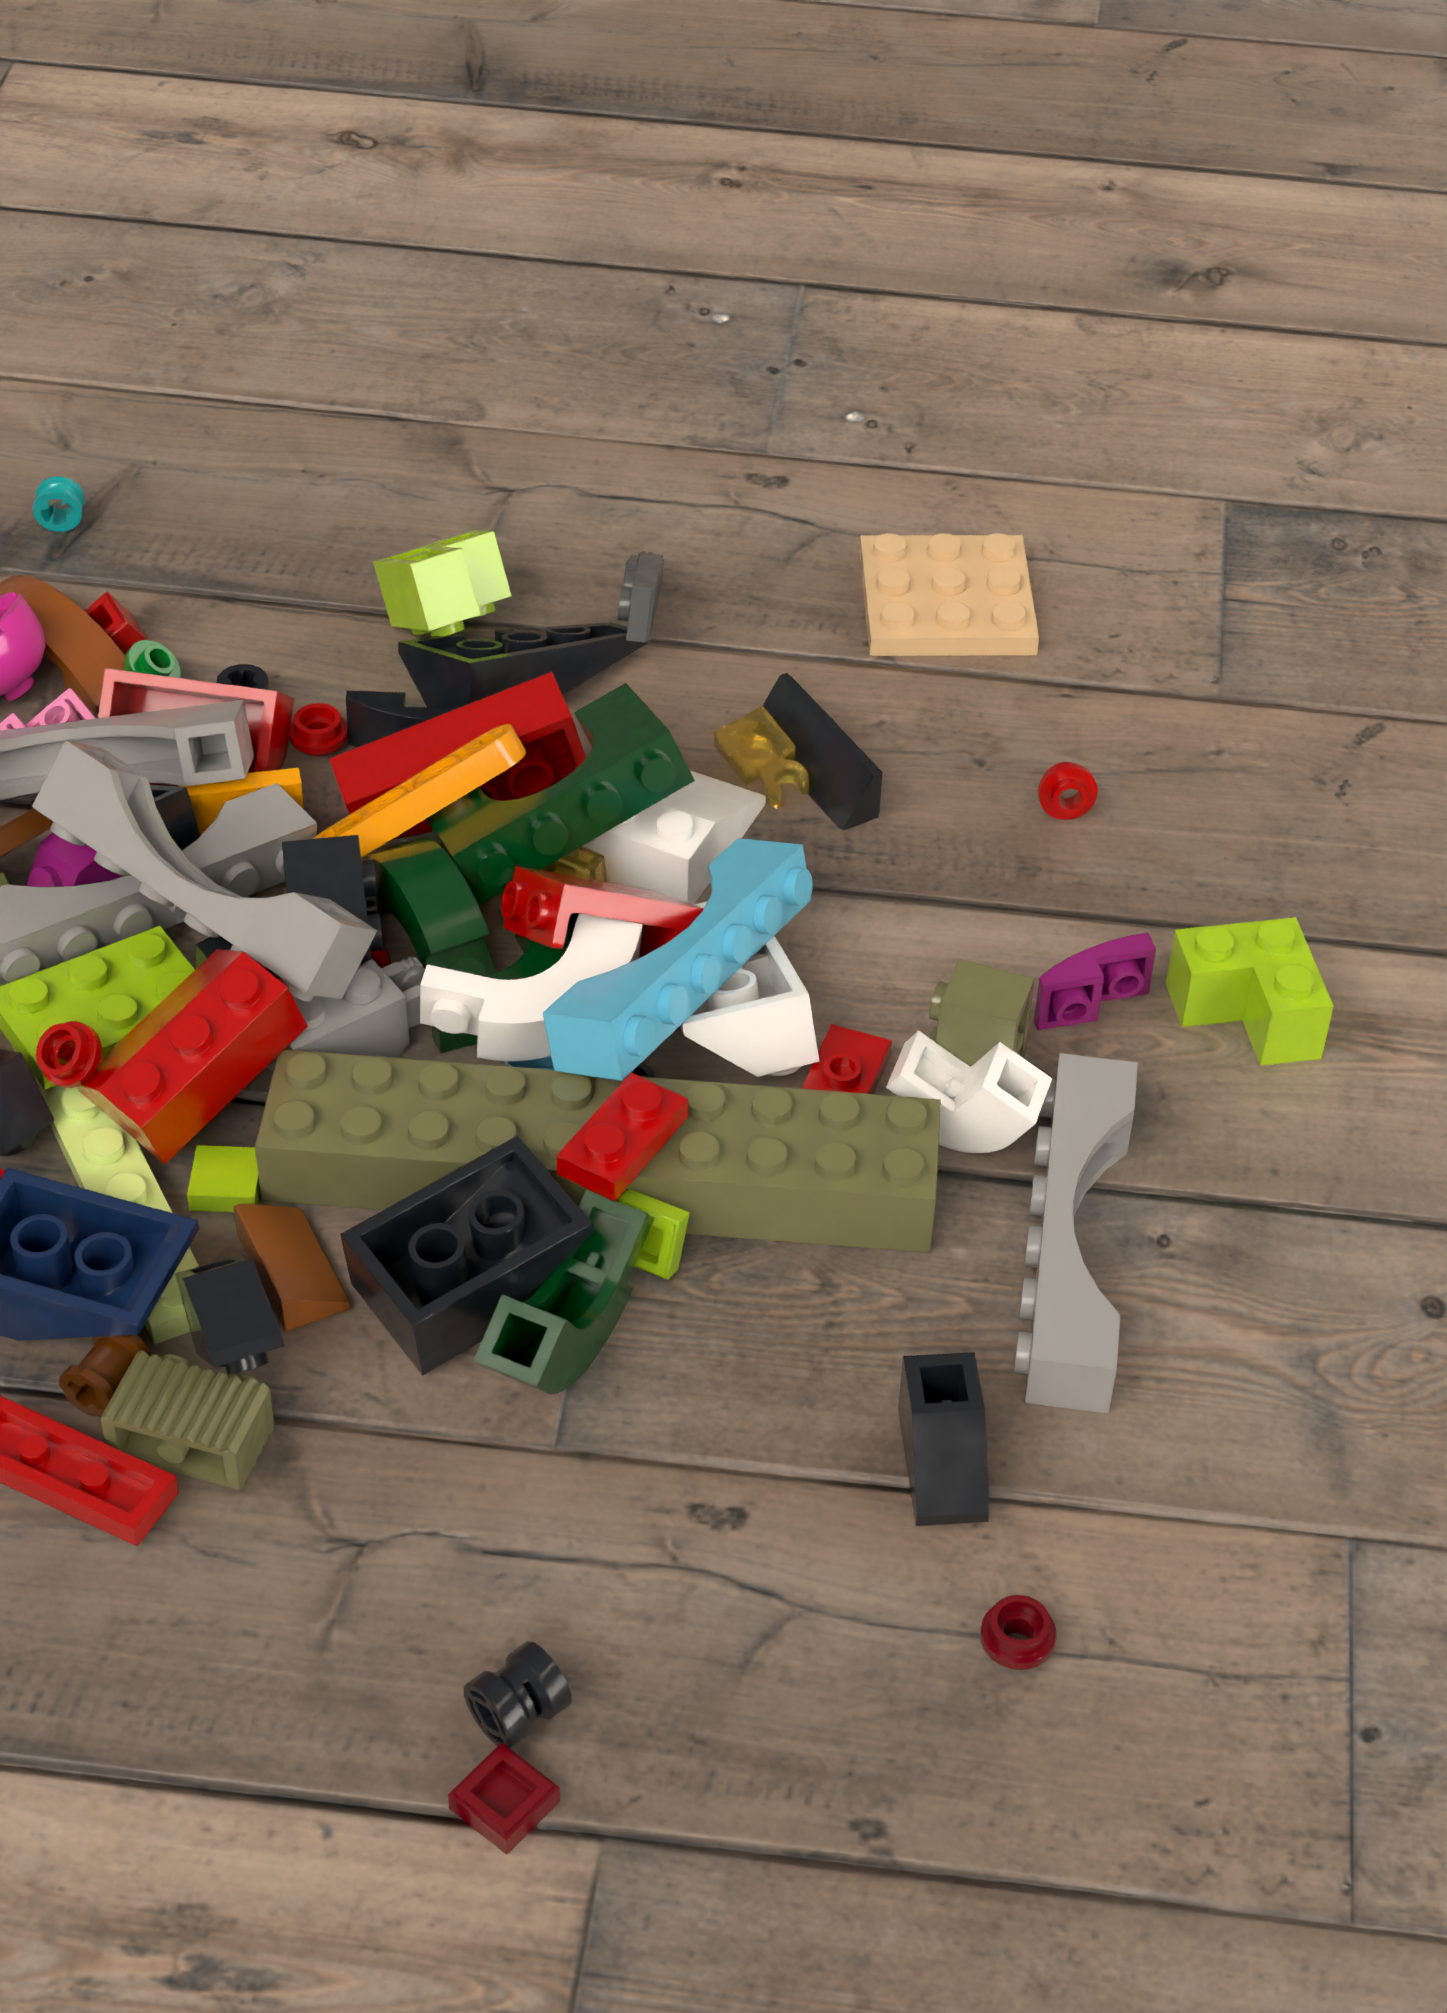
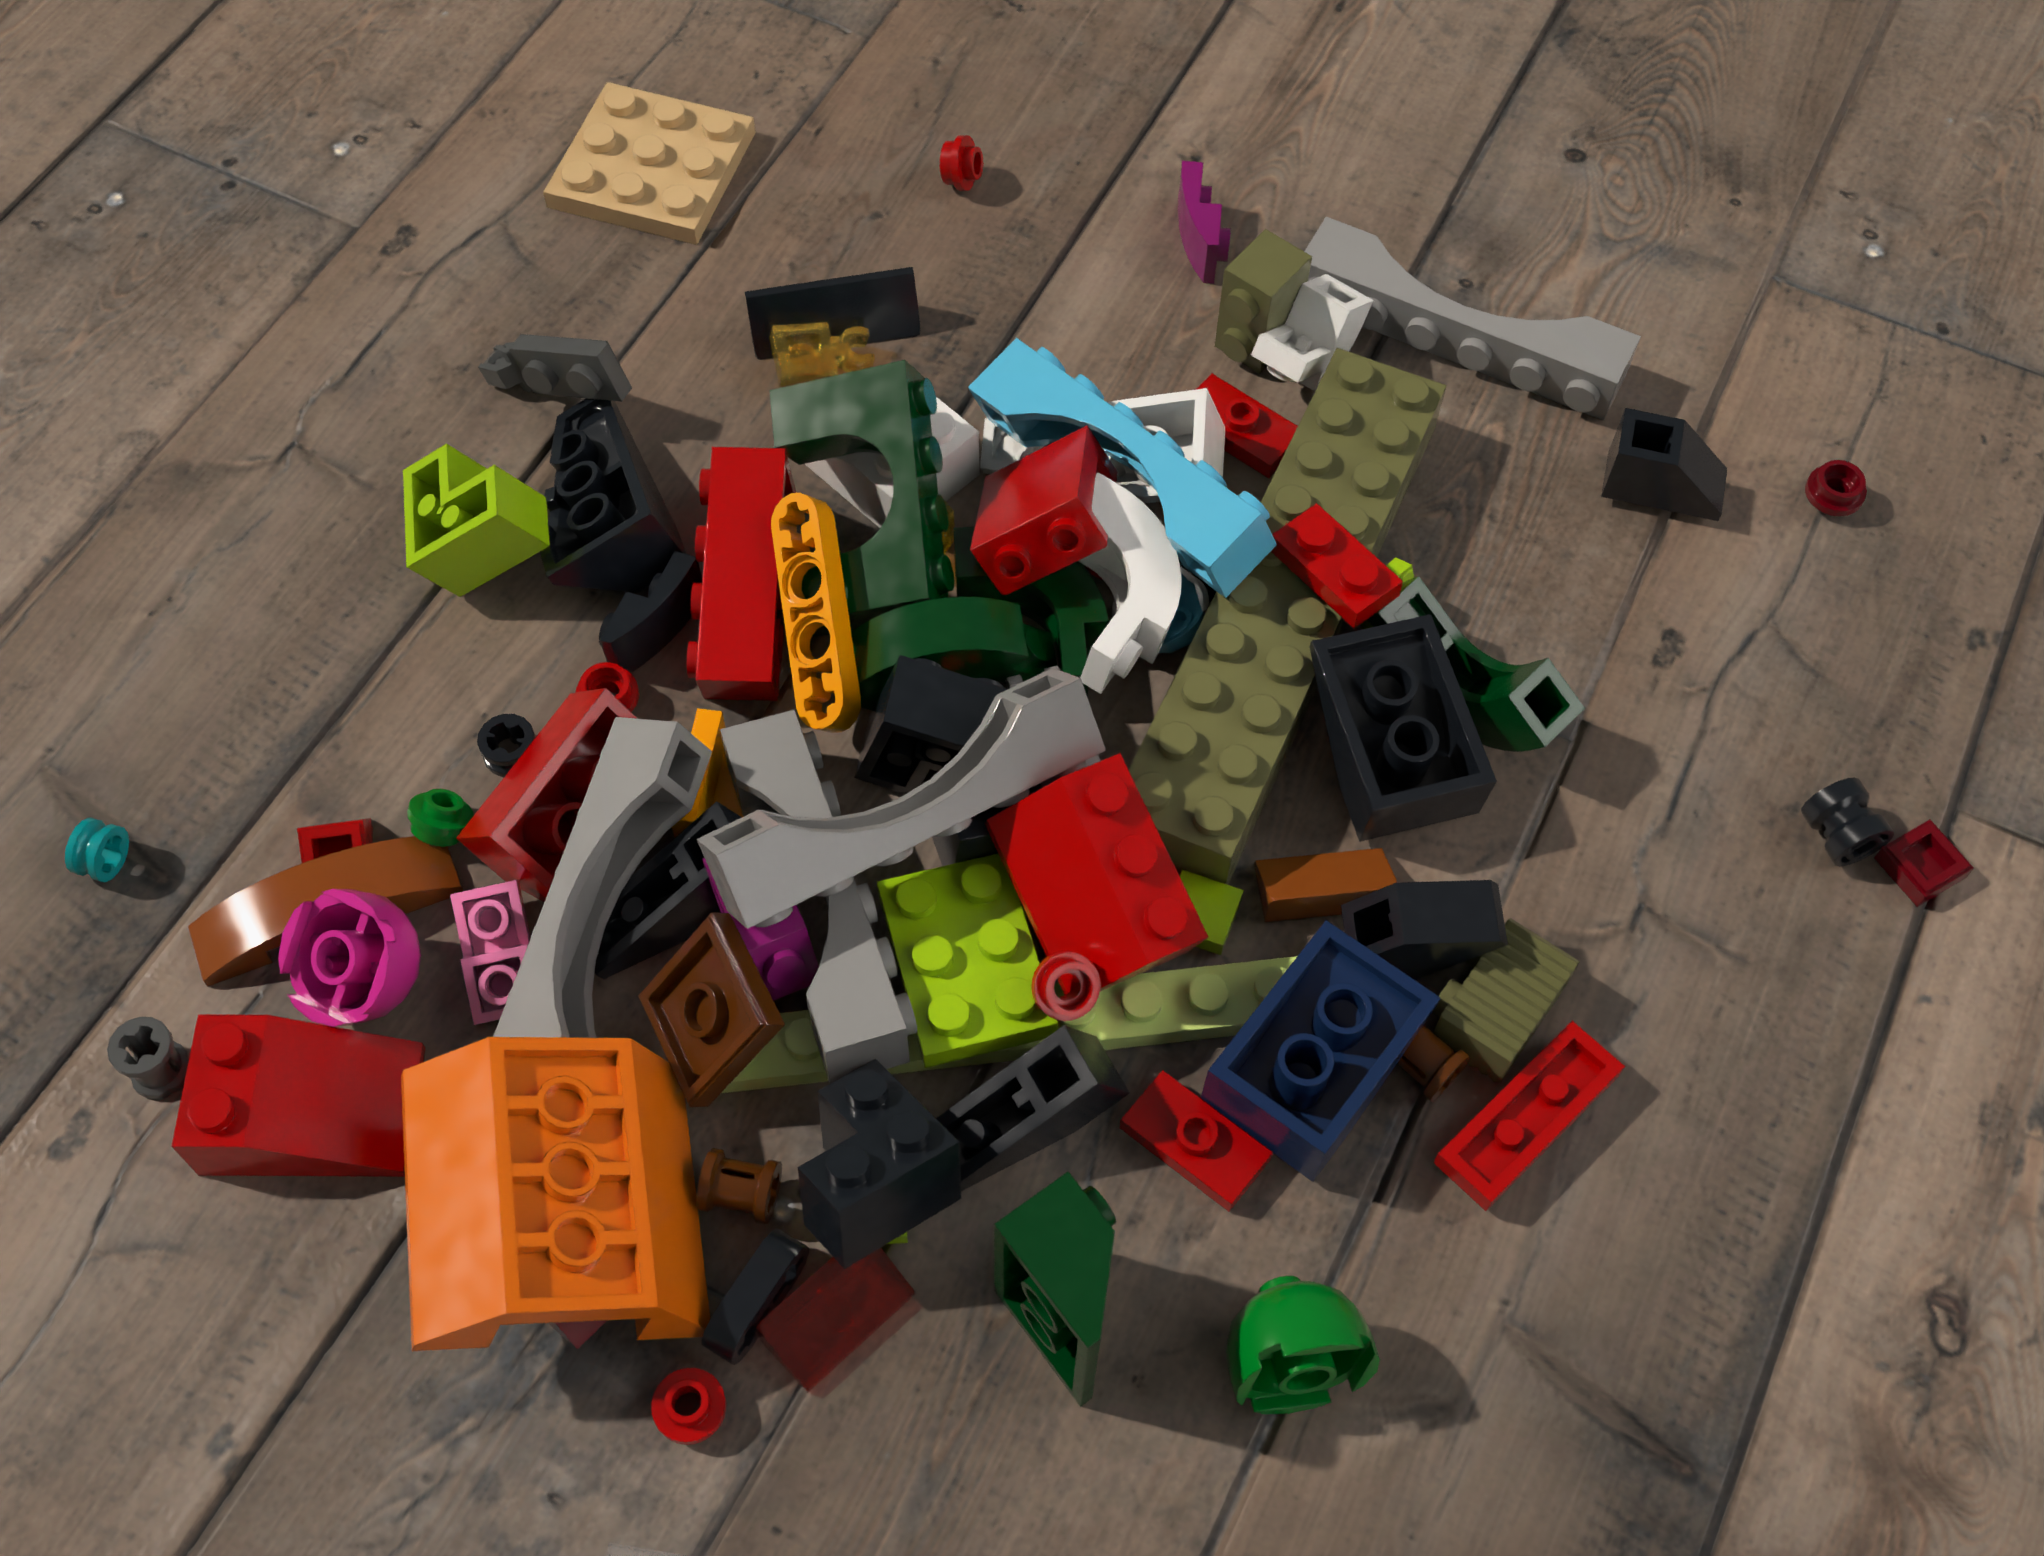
camera: 70 degrees left, 15 degrees up
(1253, 976) = (1250, 116): lime brick -> none

